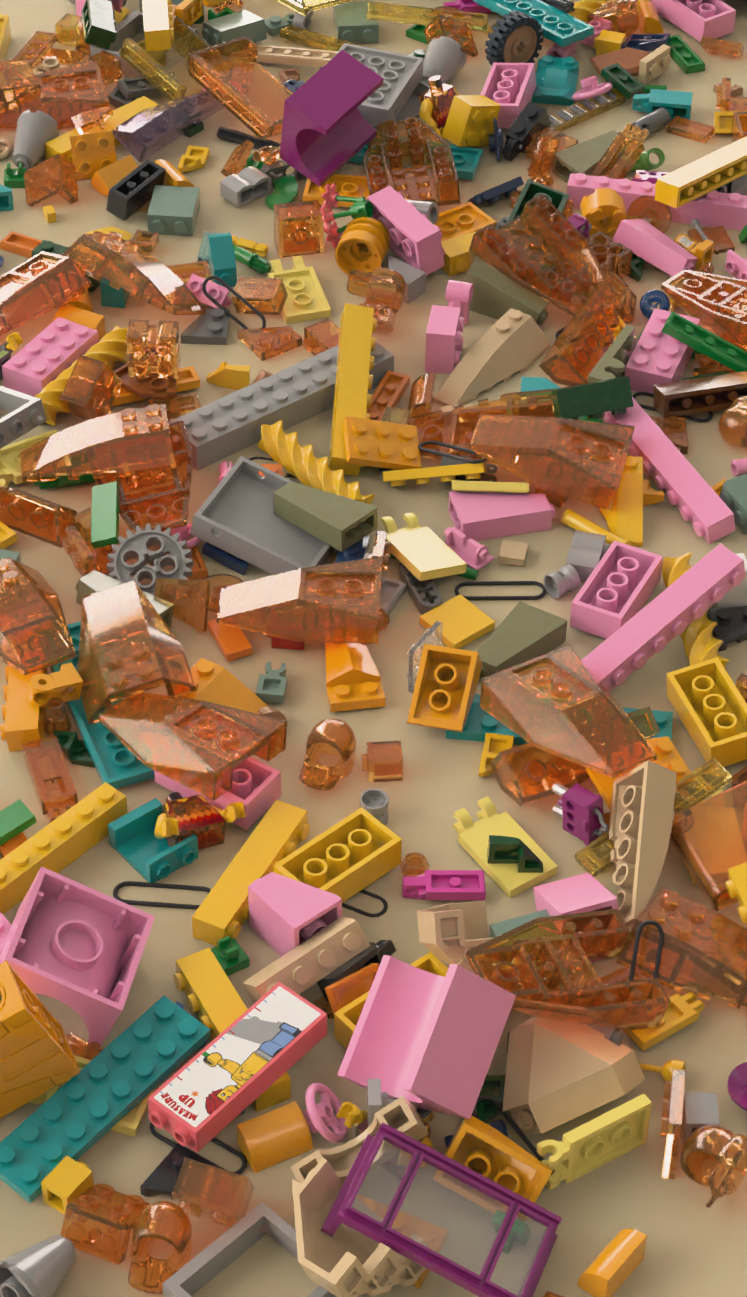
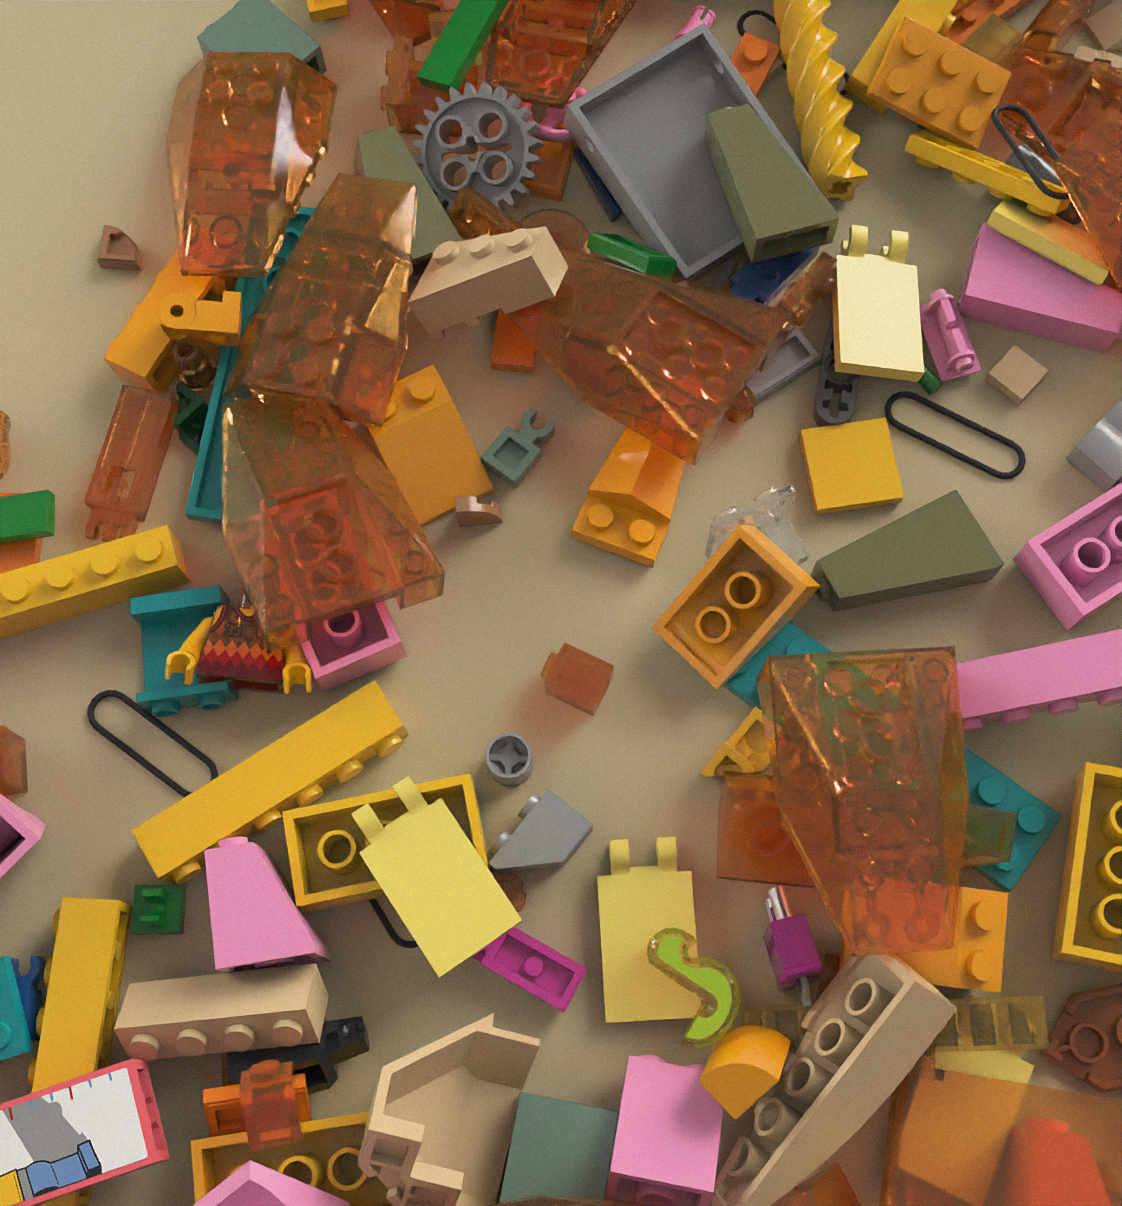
camera: 35 degrees right, 30 degrees up
(206, 603) = (486, 275): none -> tan wedge
(281, 568) = (632, 253): none -> green tile
(332, 738) = (520, 615): clear orange piece -> none
(364, 962) = (271, 1105): none -> clear orange brick
(376, 849) = (435, 880): none -> light yellow tile
(419, 828) = (543, 839): none -> light grey slope
(512, 850) = (655, 988): dark green slope -> none
(547, 841) = (702, 977): none -> animal
(559, 582) = (1051, 472): light grey wheel -> none
(593, 854) = (744, 1066): none -> light orange brick

